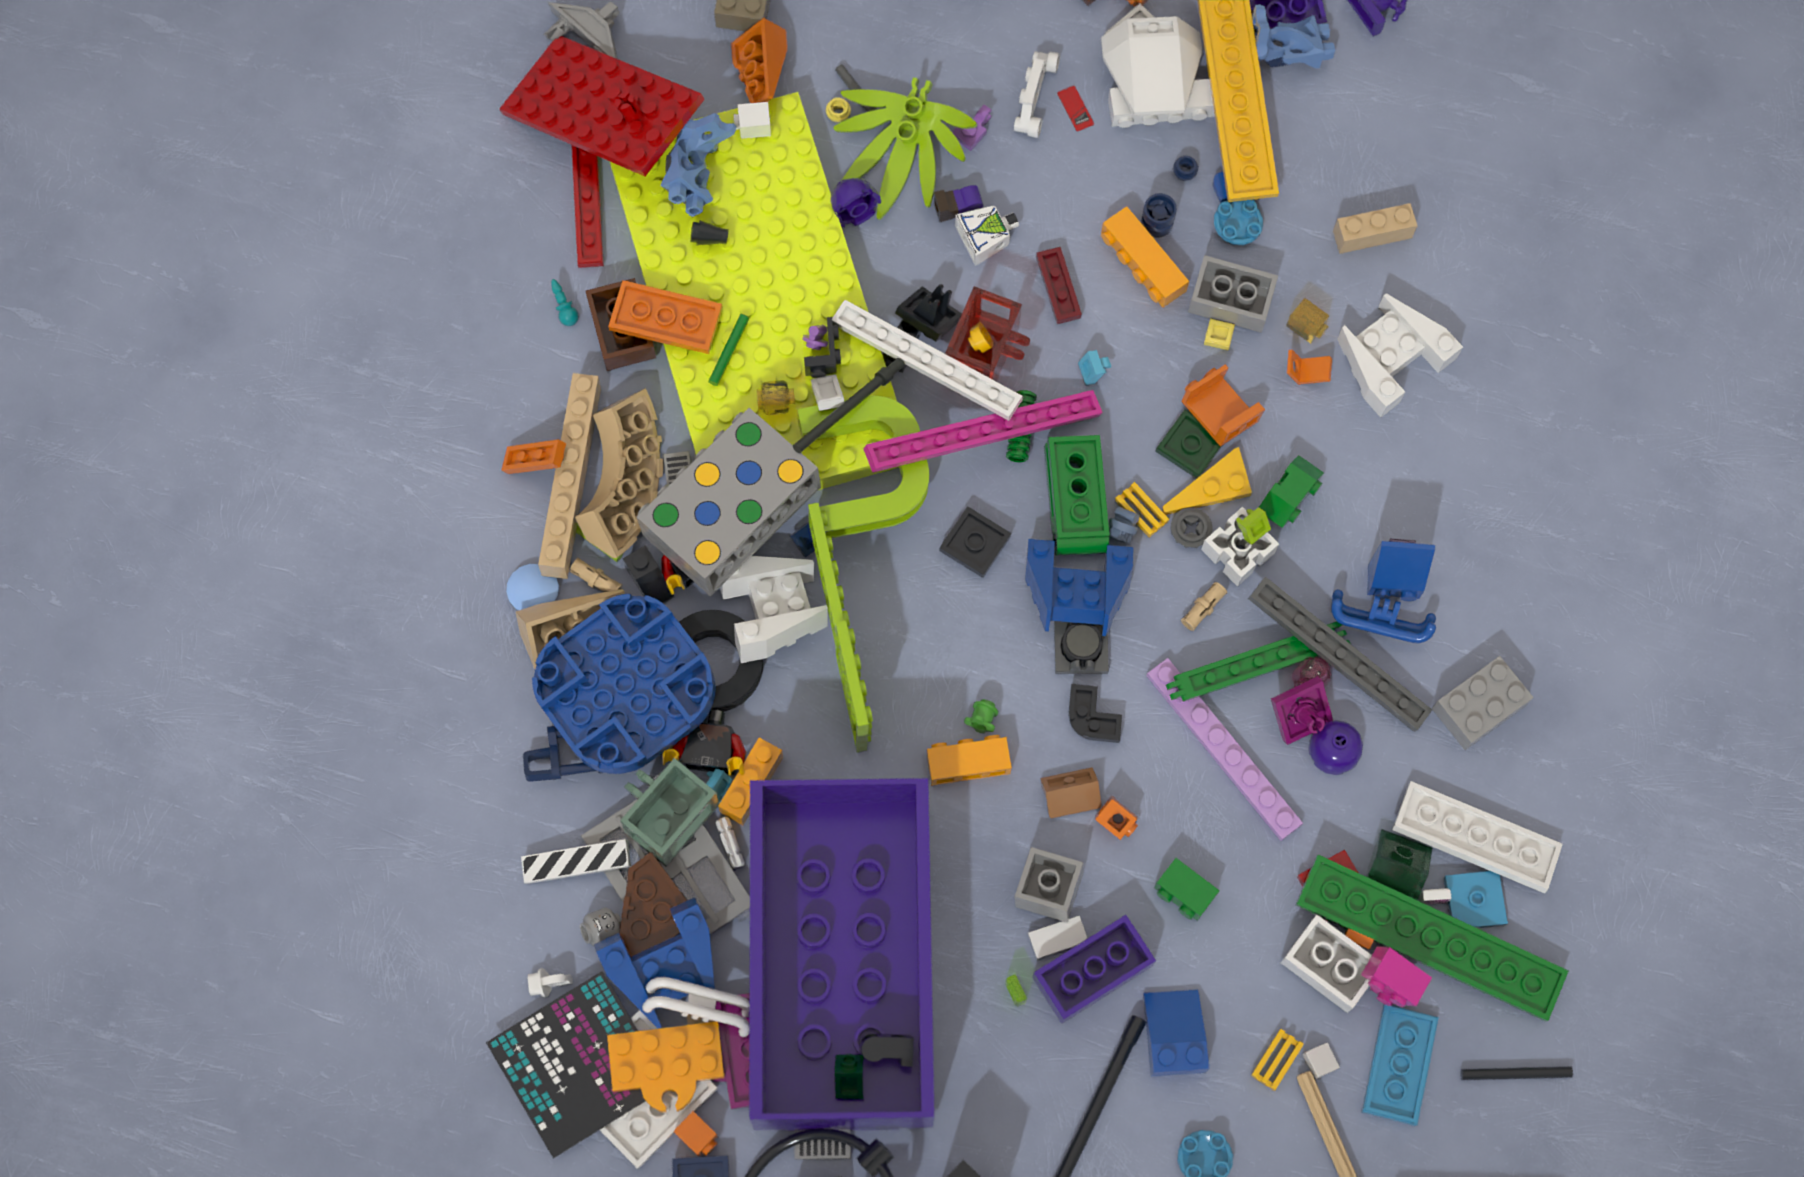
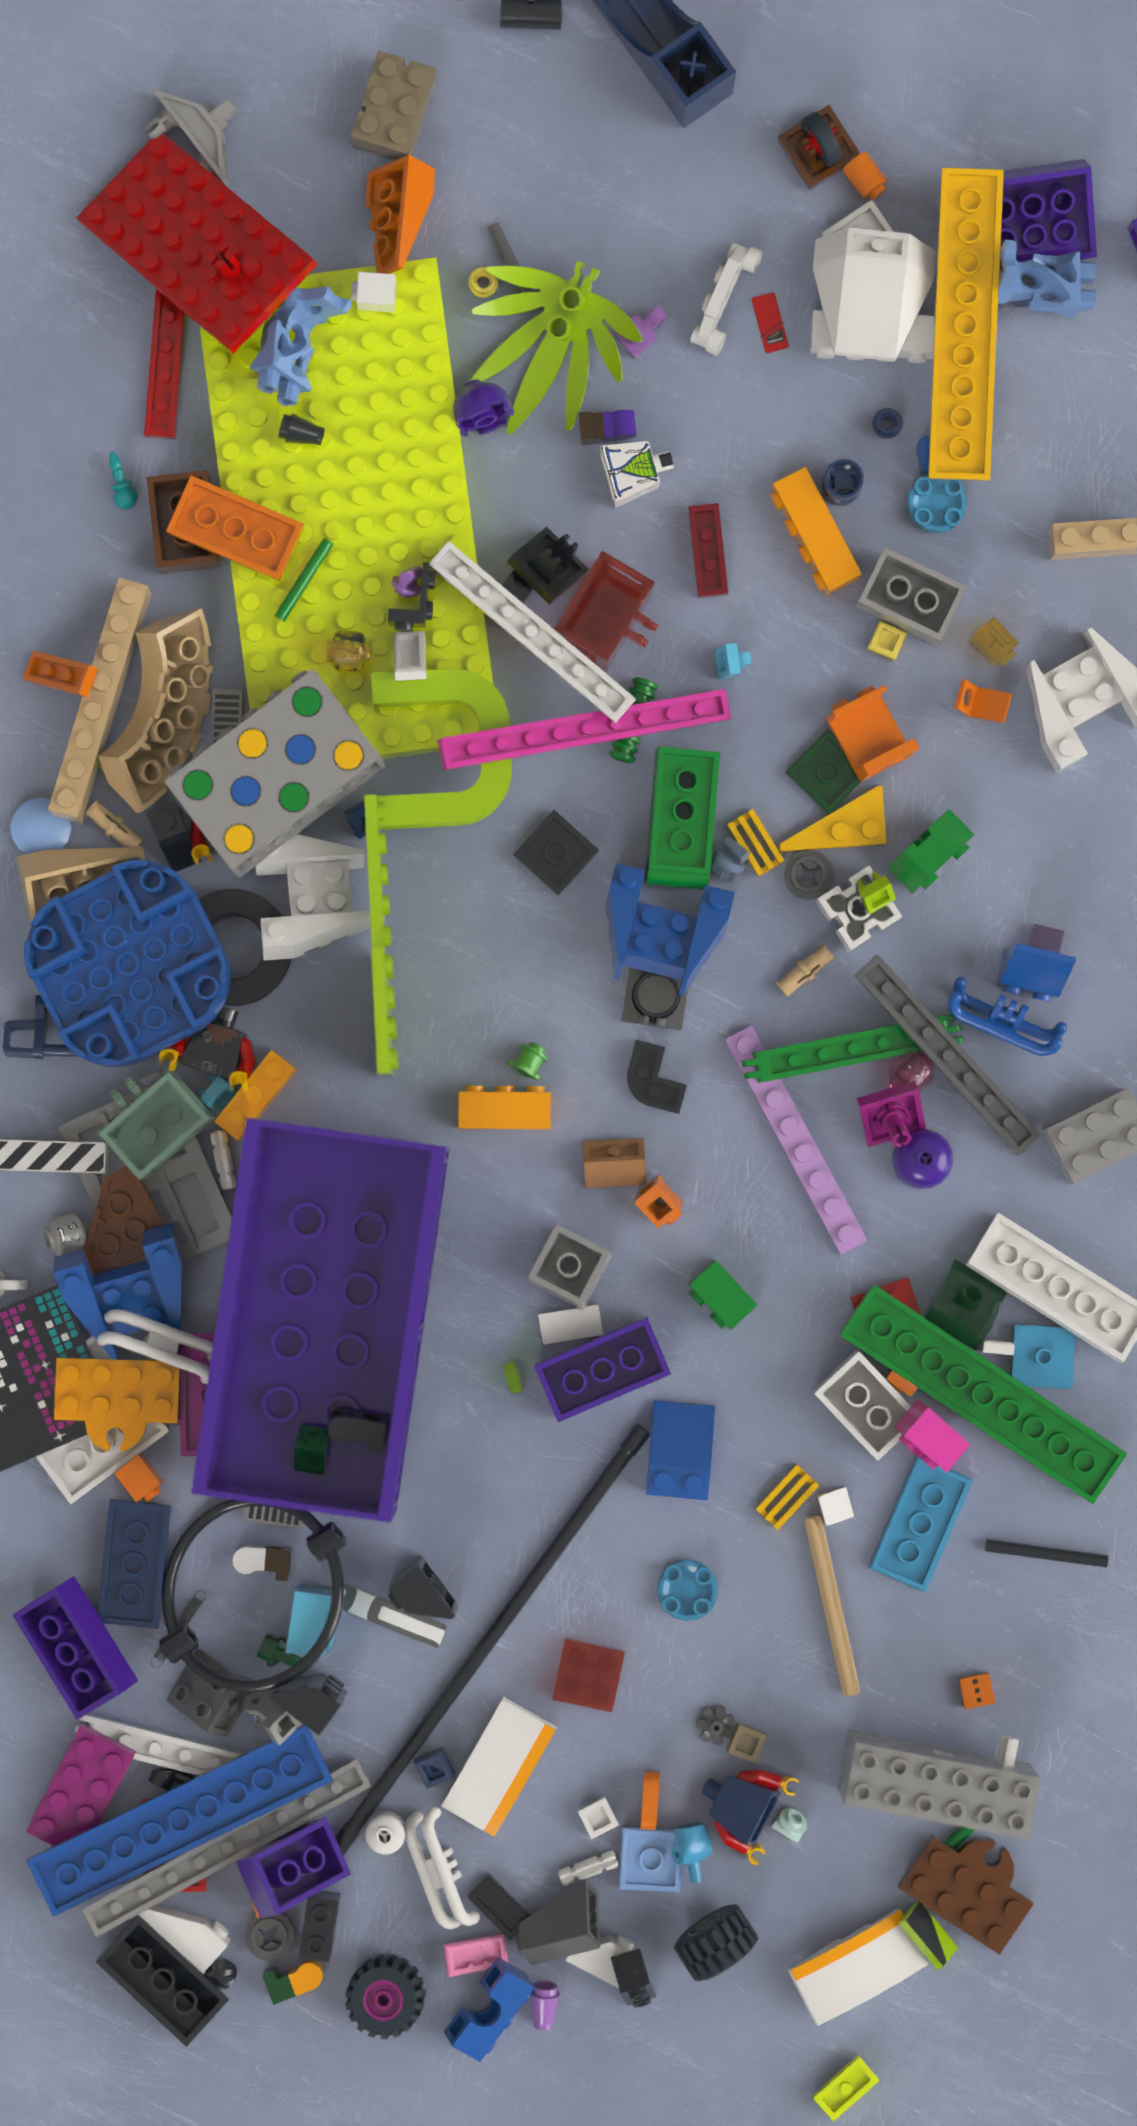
camera: 10 degrees right, 15 degrees up
(881, 377) = (475, 648): pearl dark grey bar -> none
(980, 338) = (601, 611): yellow plate -> none

